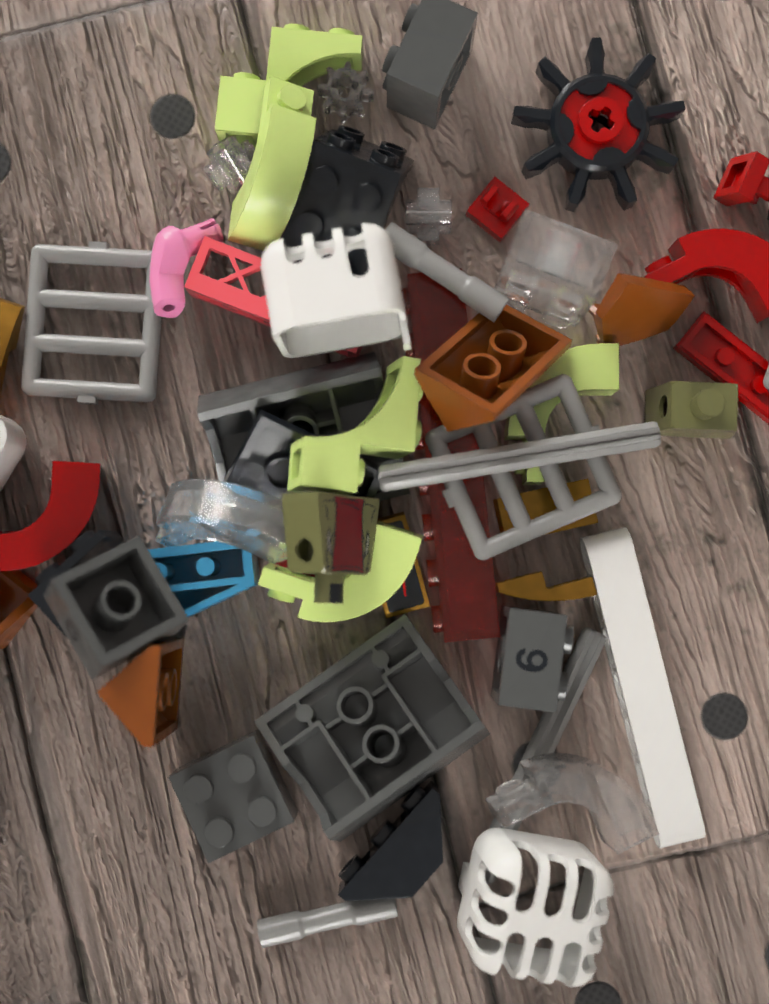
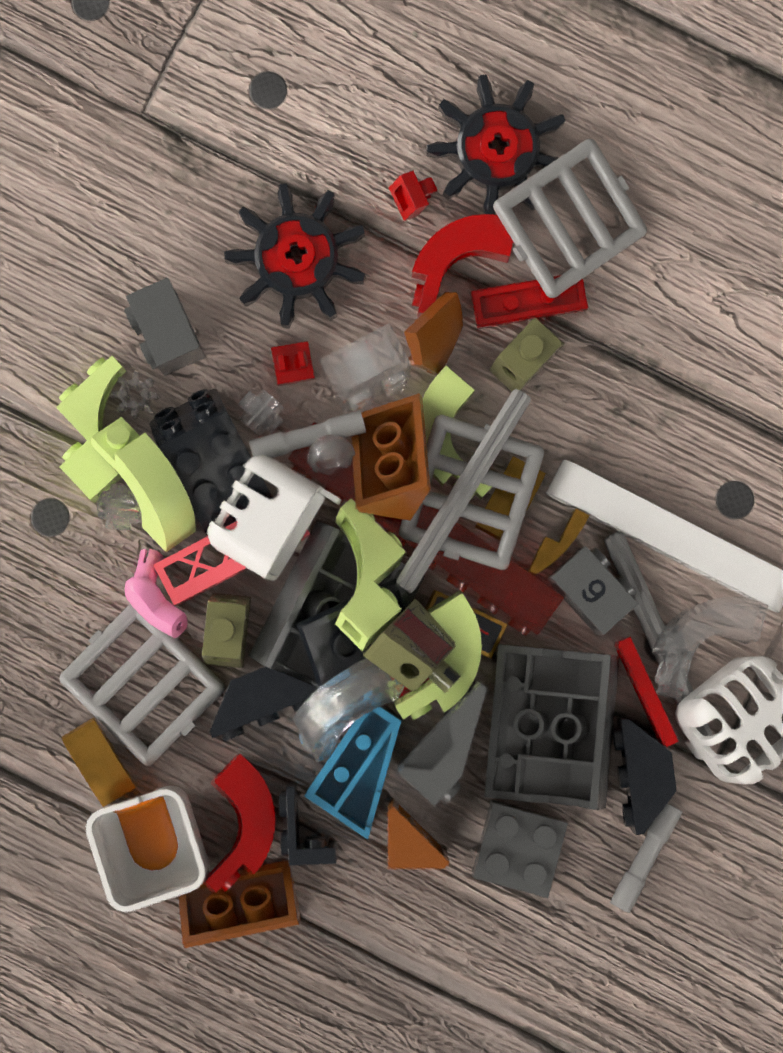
camera: 55 degrees left, 0 degrees up
(115, 606) = (344, 815): dark grey brick -> none
(165, 434) = (258, 698): none -> black slope
(203, 354) = (226, 630): none -> olive torso
(240, 651) = (442, 754): none -> dark grey piece
(444, 306) = (330, 454): none -> clear plate
(478, 787) = (645, 692): none -> red tile

